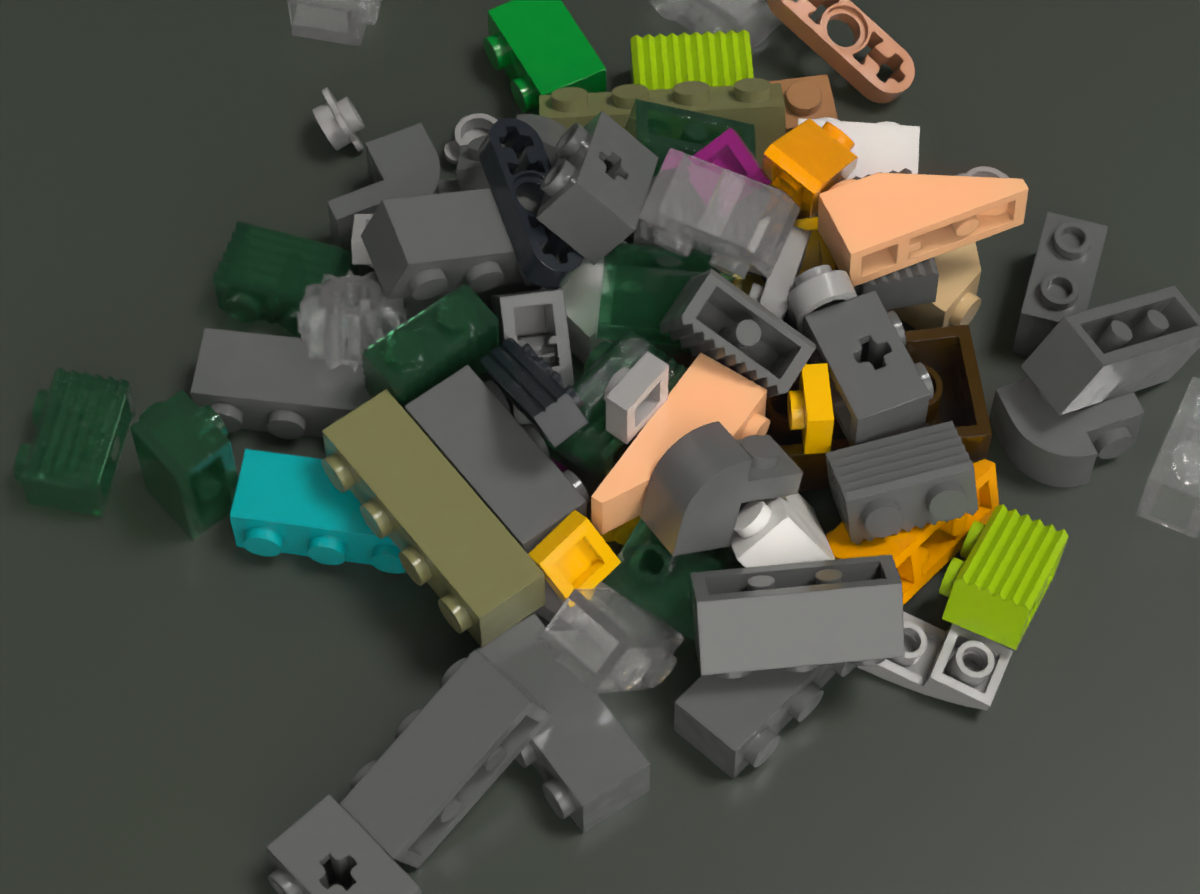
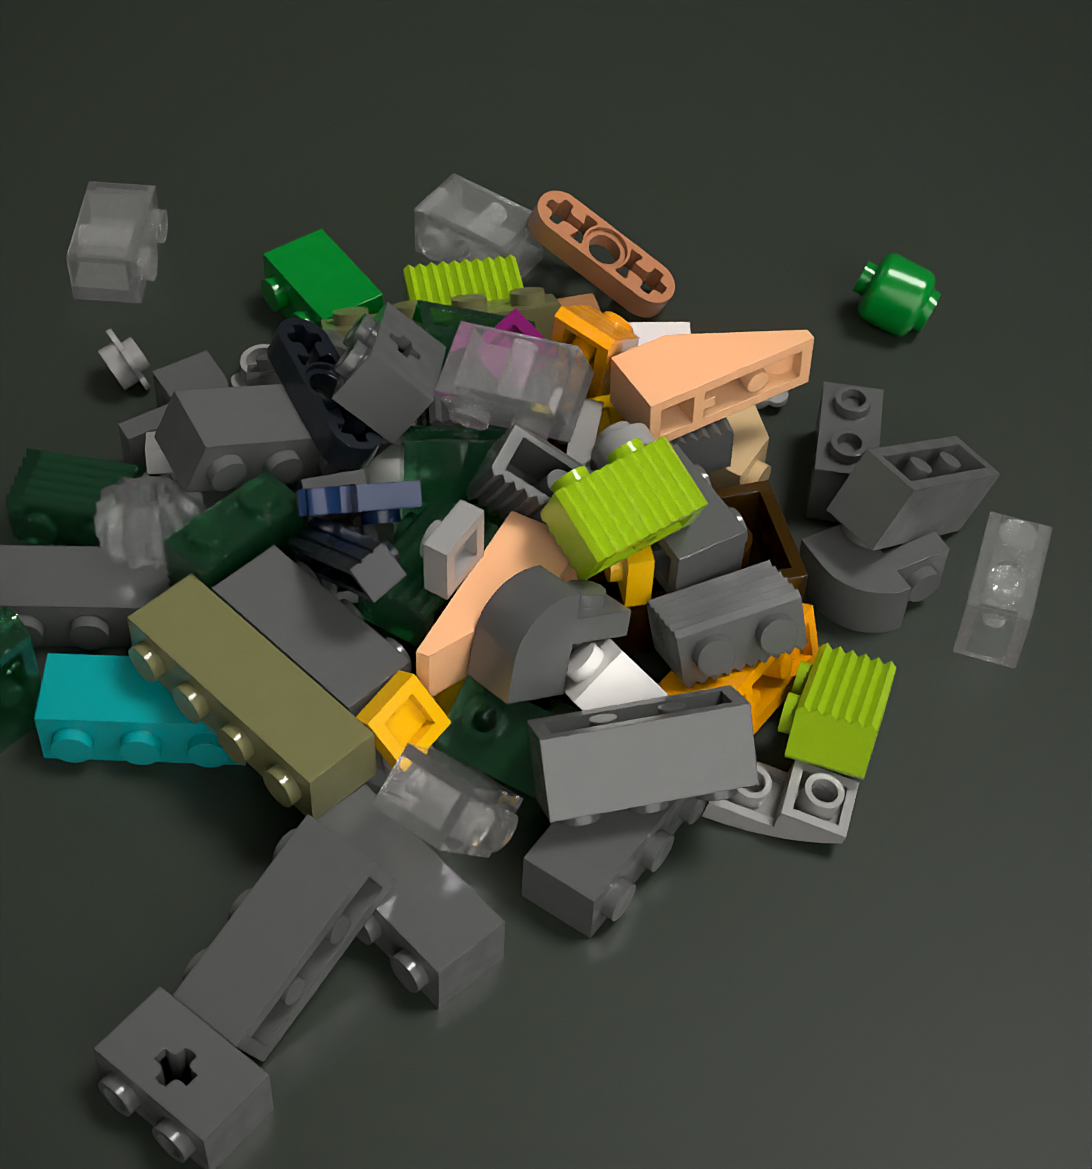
camera: 10 degrees left, 10 degrees down
(567, 327) = (375, 501): none -> dark blue plate
(806, 366) = (622, 506): none -> lime brick
(1148, 102) = (896, 294): none -> green head

